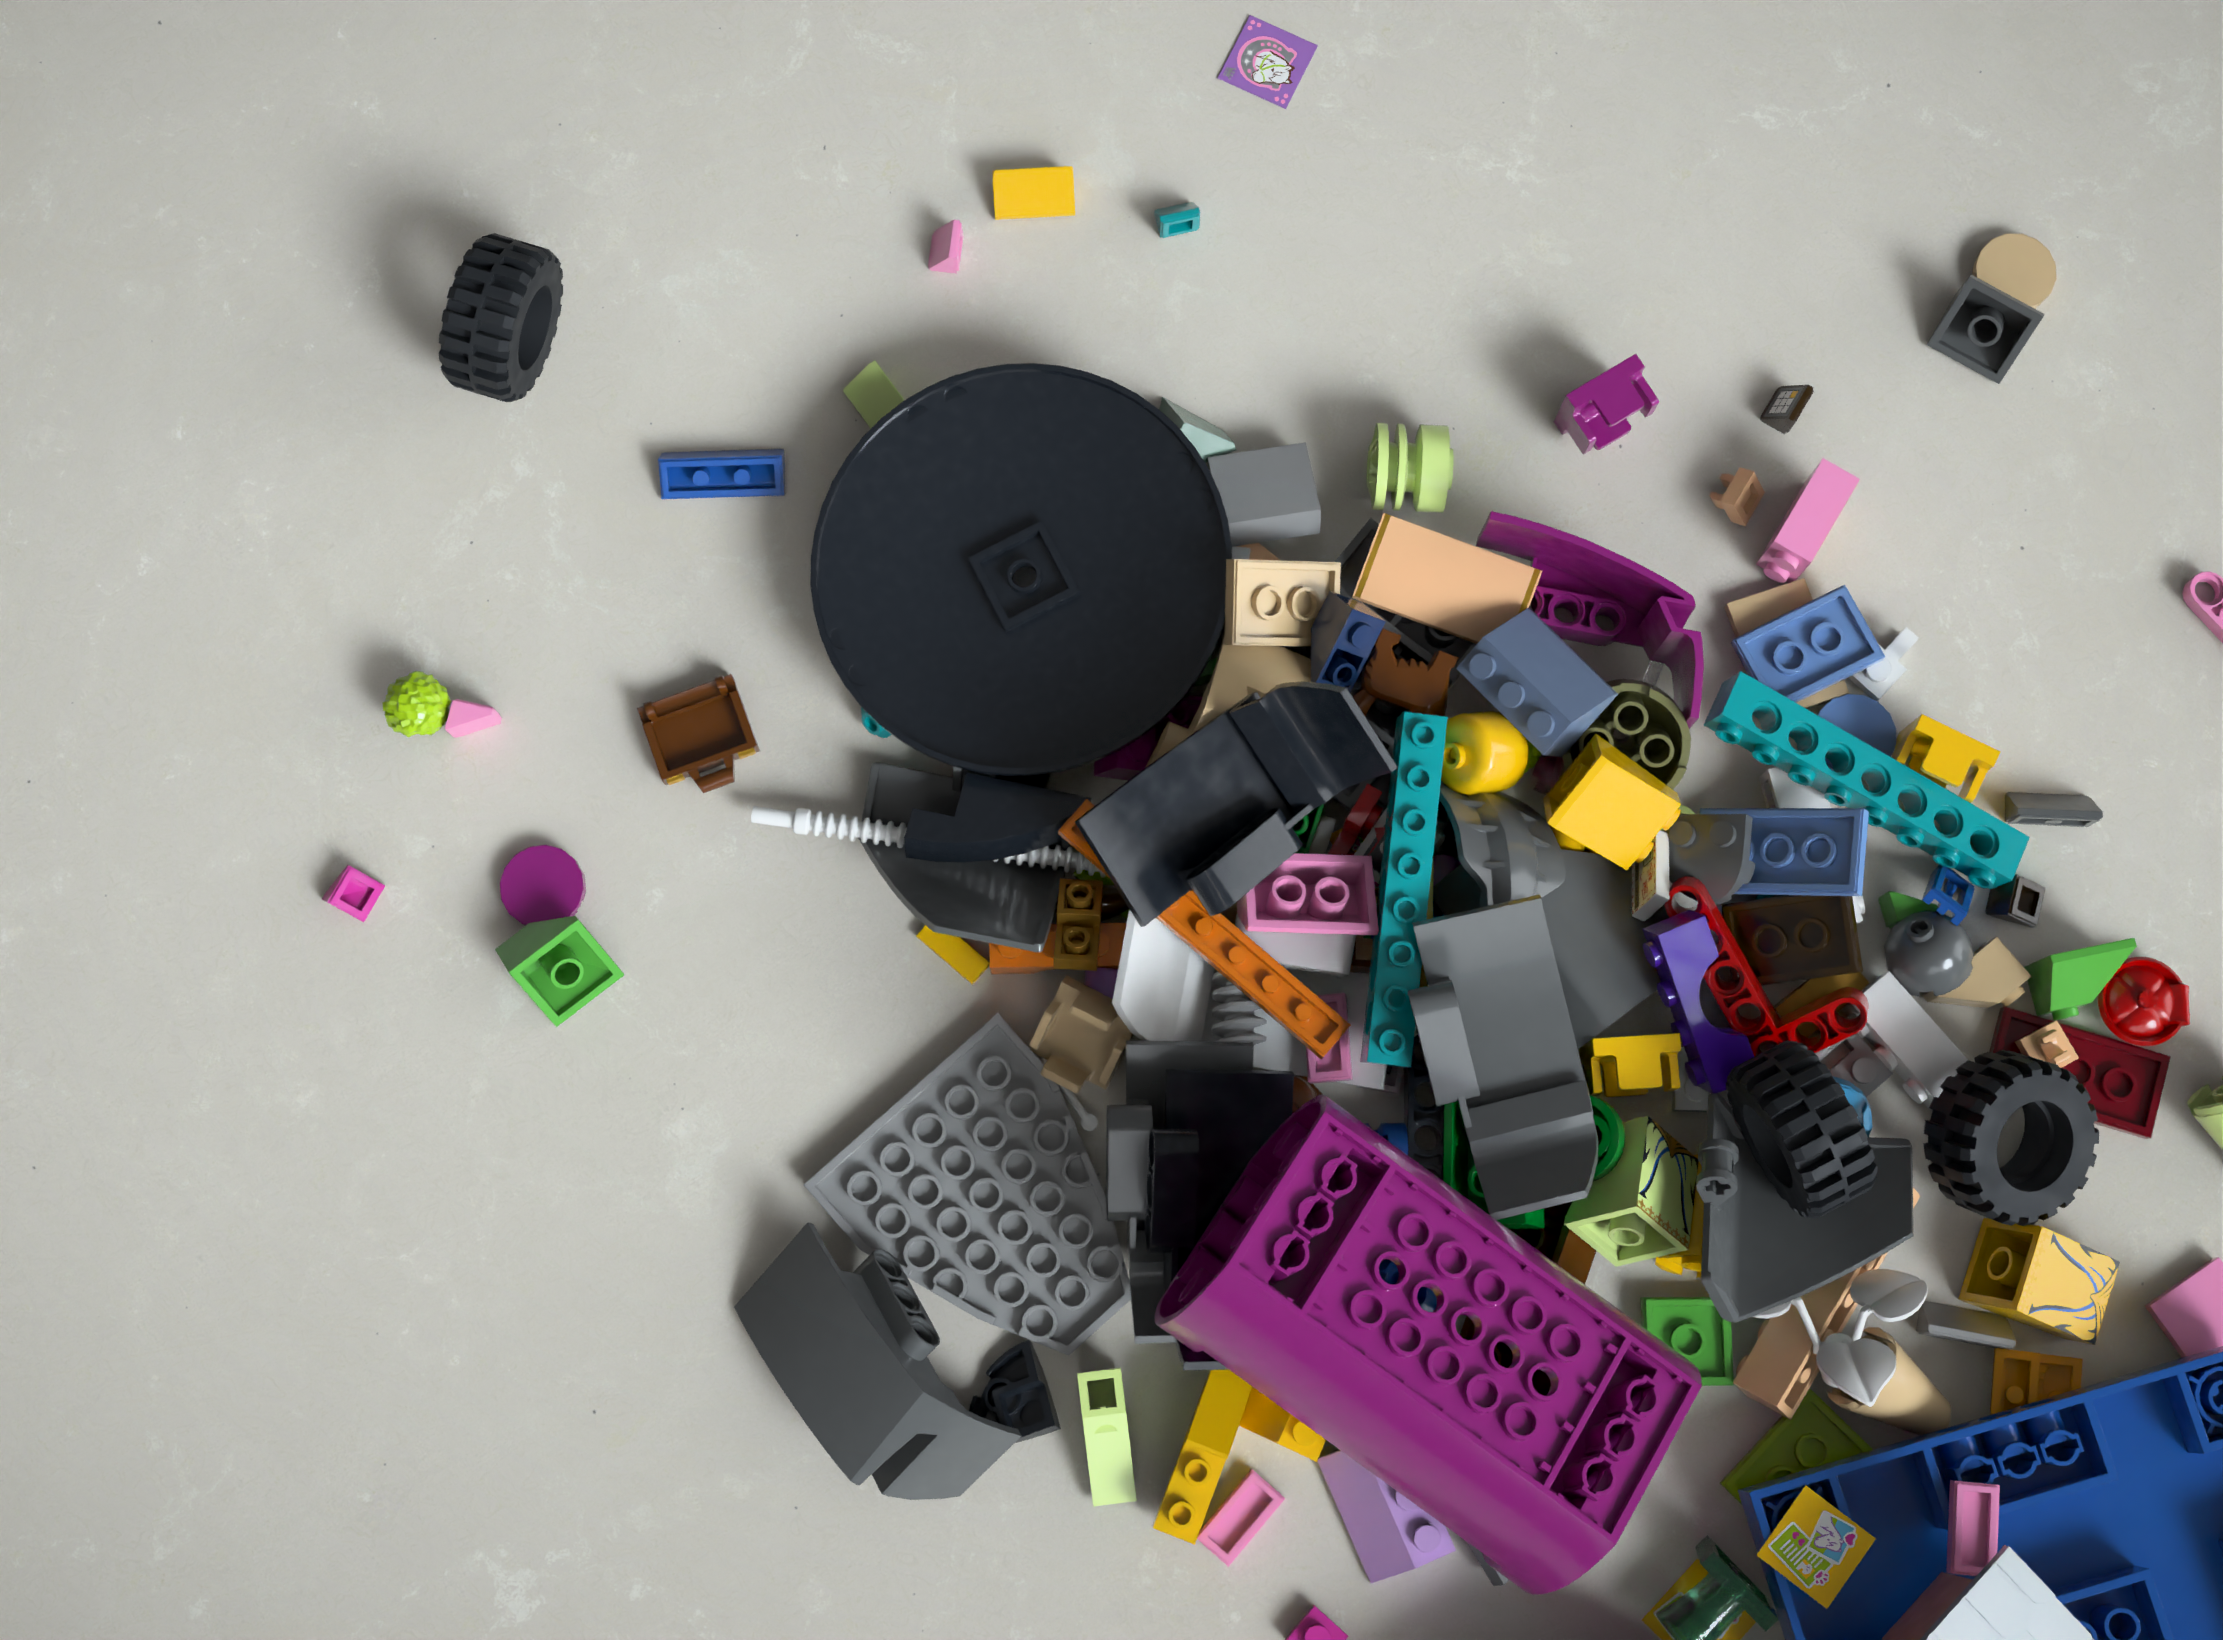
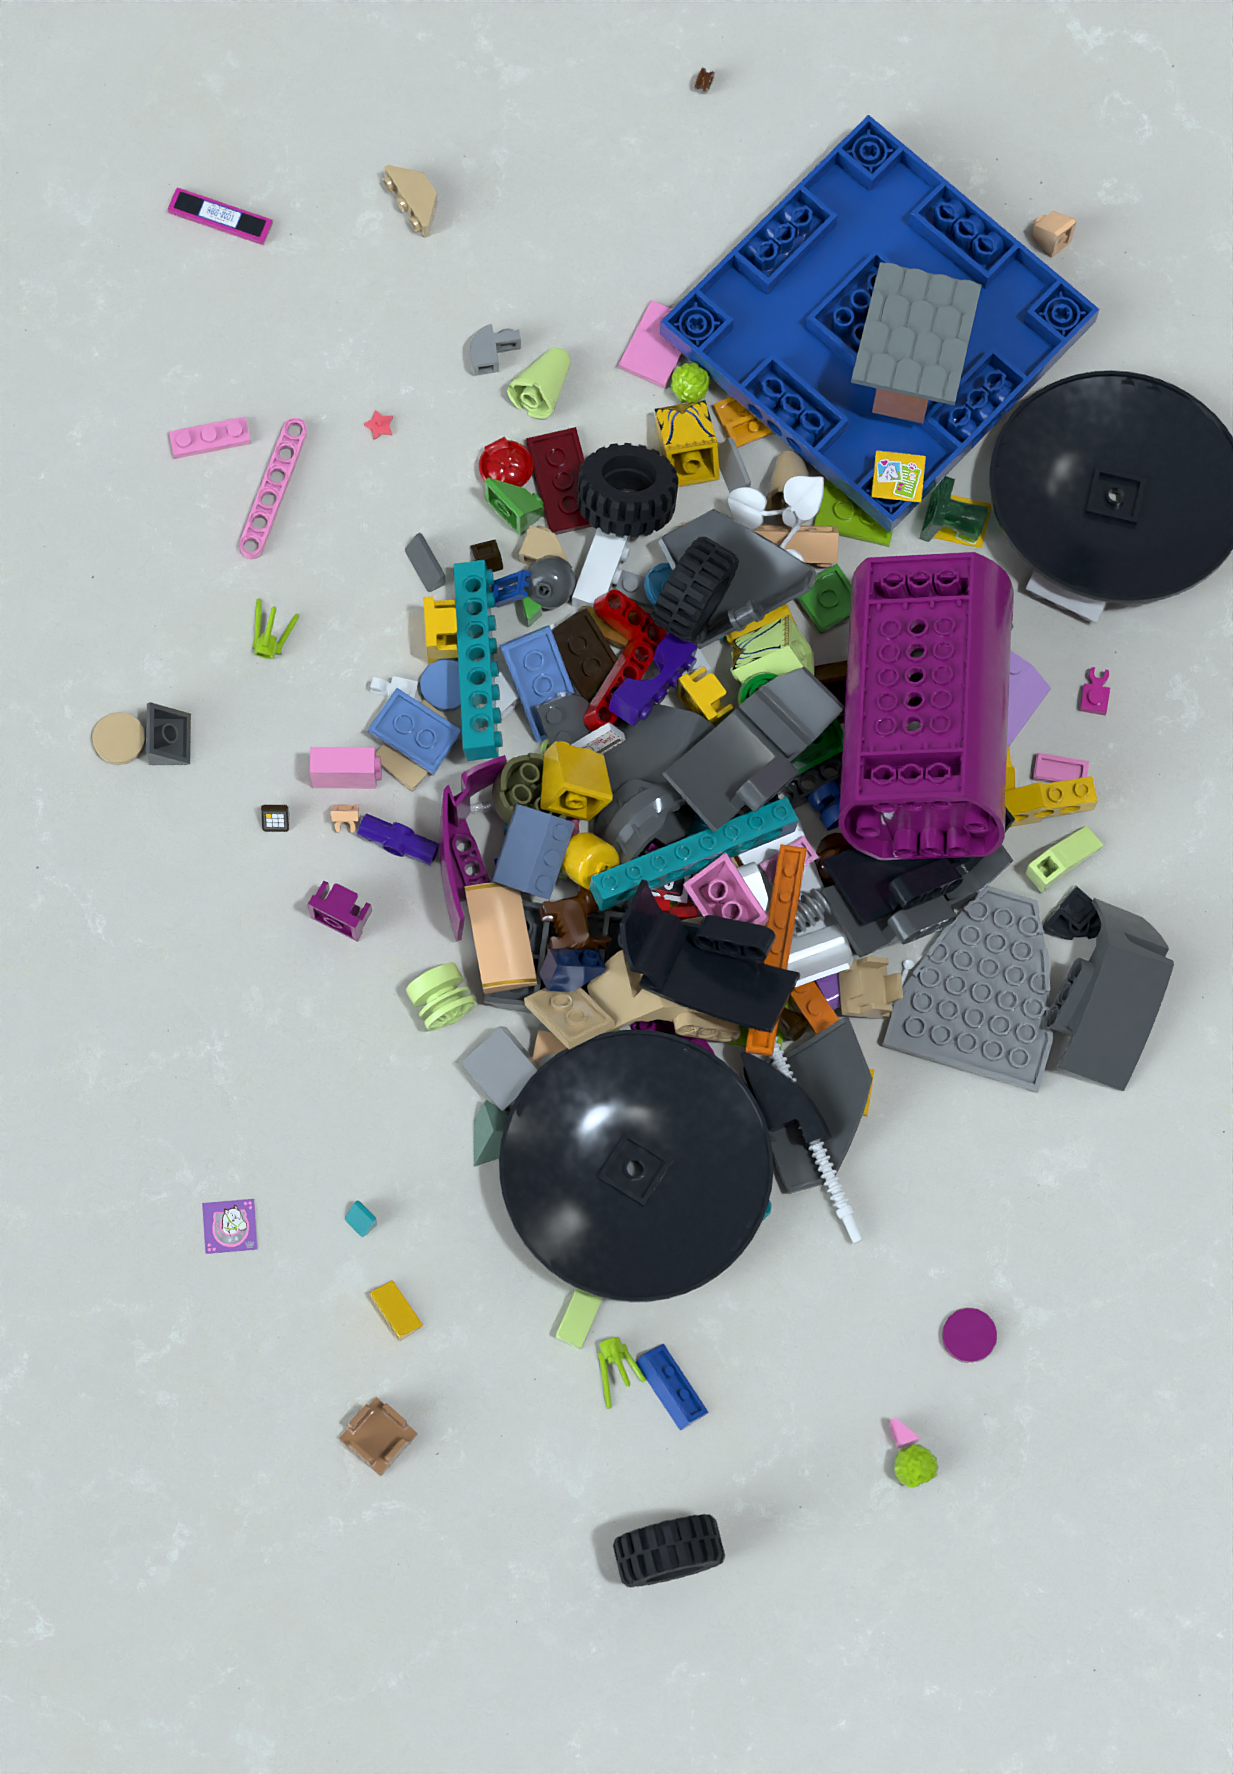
camera: 125 degrees left, 5 degrees down
(354, 893) = (1040, 1439): dark pink slope -> none
(558, 965) = (1007, 1296): bright green slope -> none
(699, 733) = (829, 1302): reddish brown piece -> none
(810, 419) = (613, 1351): none -> lime plant
(888, 83) = (378, 1435): none -> medium nougat panel
(946, 248) = (460, 1340): bright pink slope -> none
(1078, 924) = (812, 1020): pearl gold slope -> none
(1673, 539) = (398, 839): none -> dark purple piece
(1972, 1526) = (842, 407): bright pink tile -> none
(2045, 529) = (266, 644): none -> lime plant
(2048, 1045) = (562, 499): light nougat tile -> none
(2133, 1340) = (690, 382): none -> lime piece

